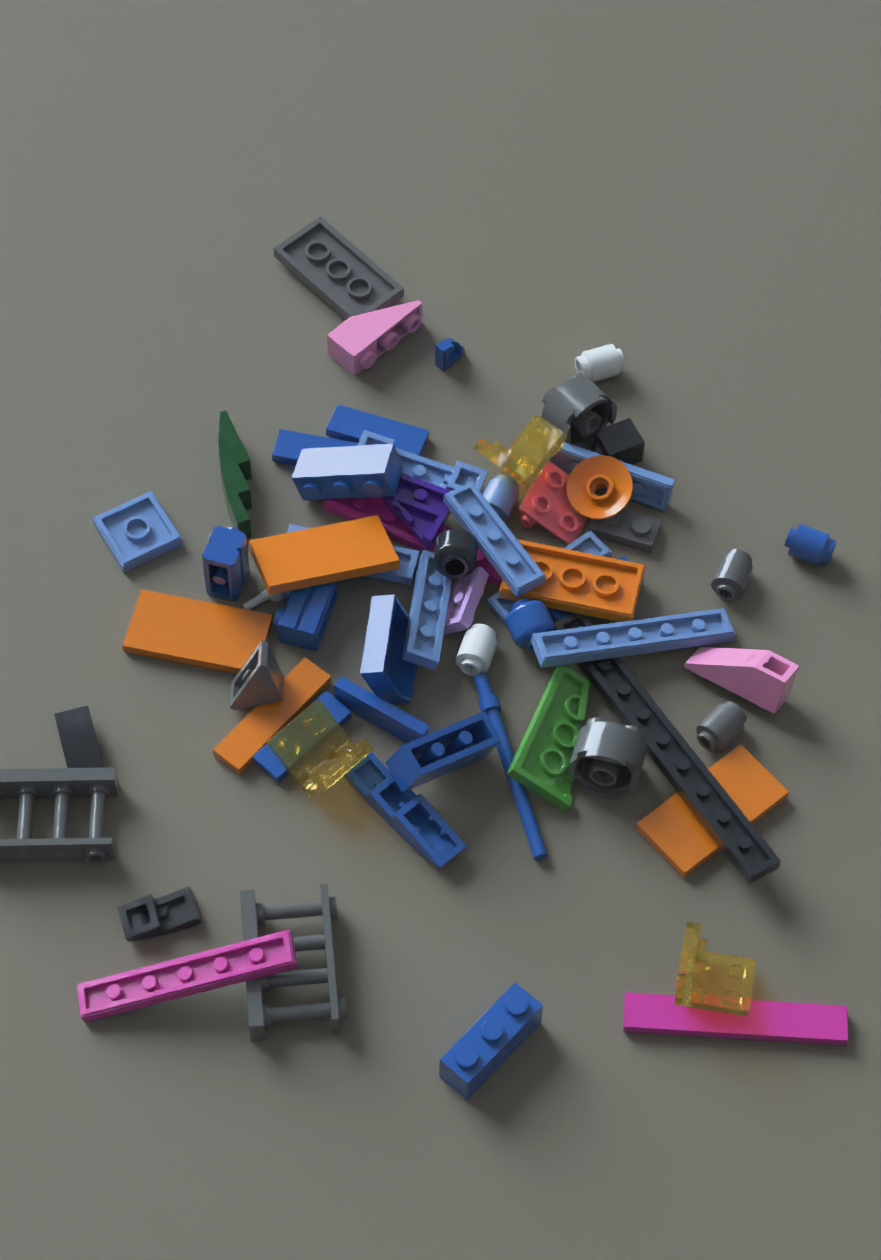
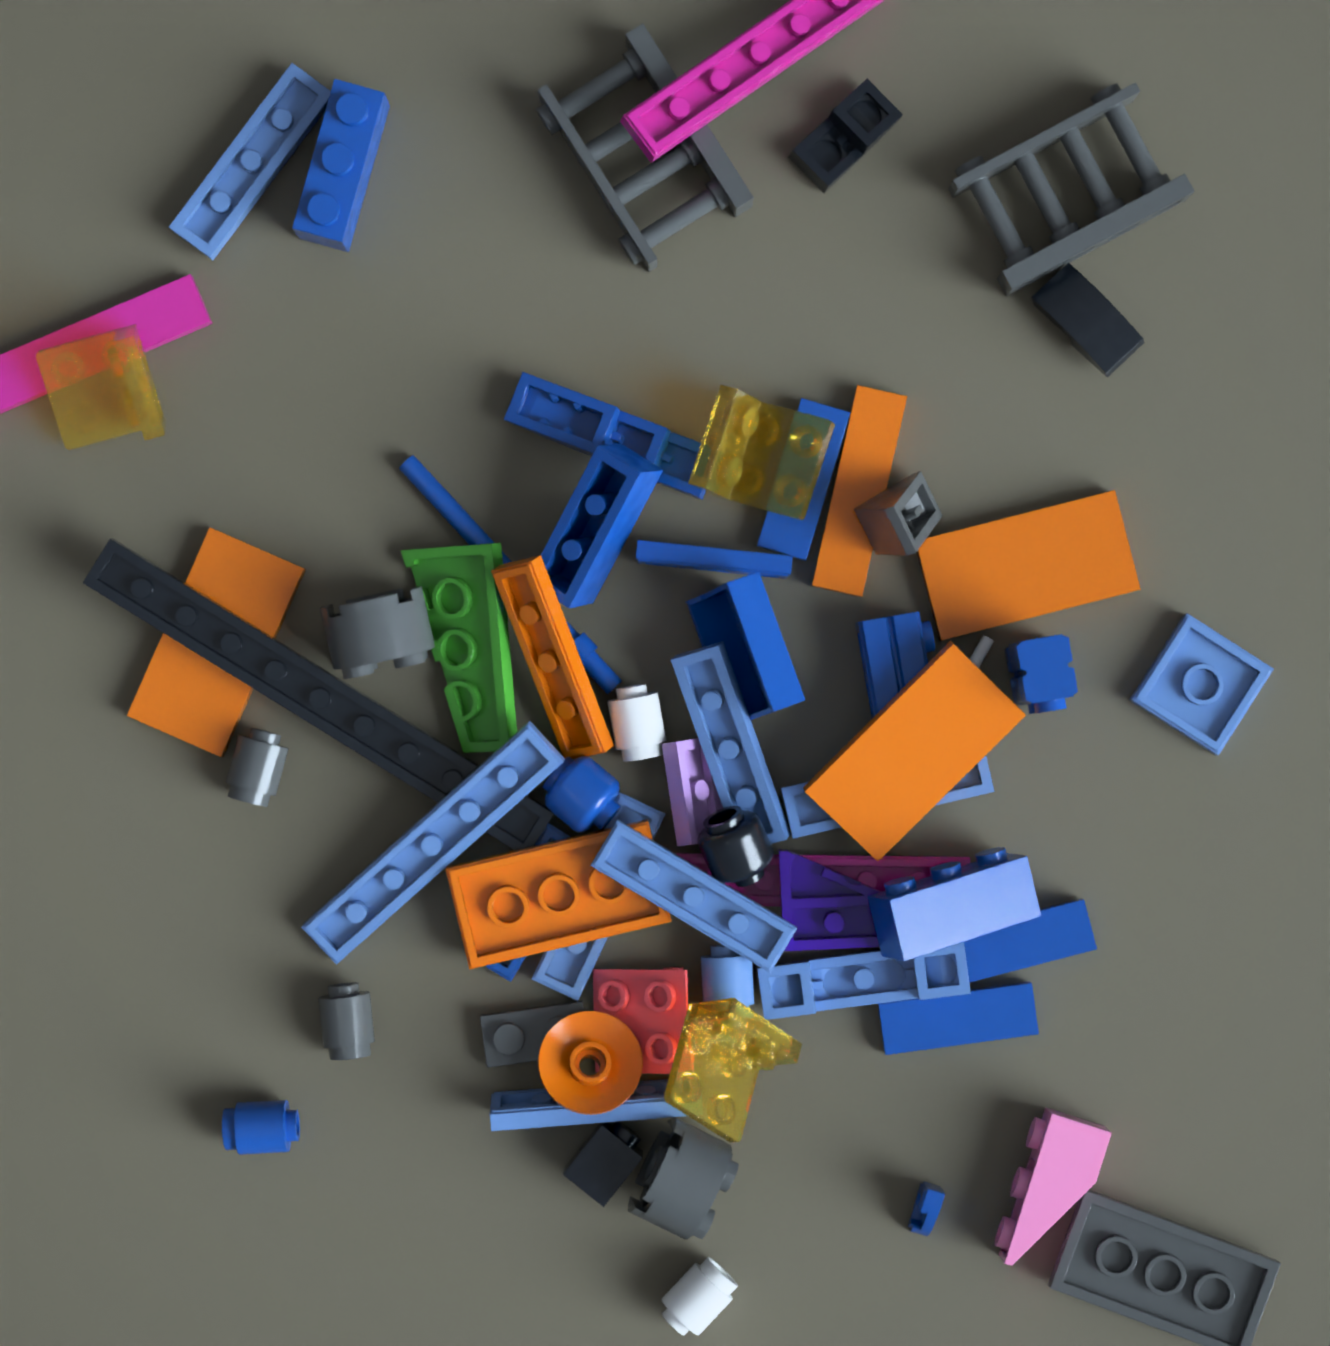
camera: 155 degrees right, 30 degrees up
(235, 470) = (1127, 848): dark green slope -> none
(508, 698) = (552, 657): none -> orange tile
(548, 1076) = (251, 162): none -> medium blue plate
(750, 673) = (261, 864): bright pink slope -> none

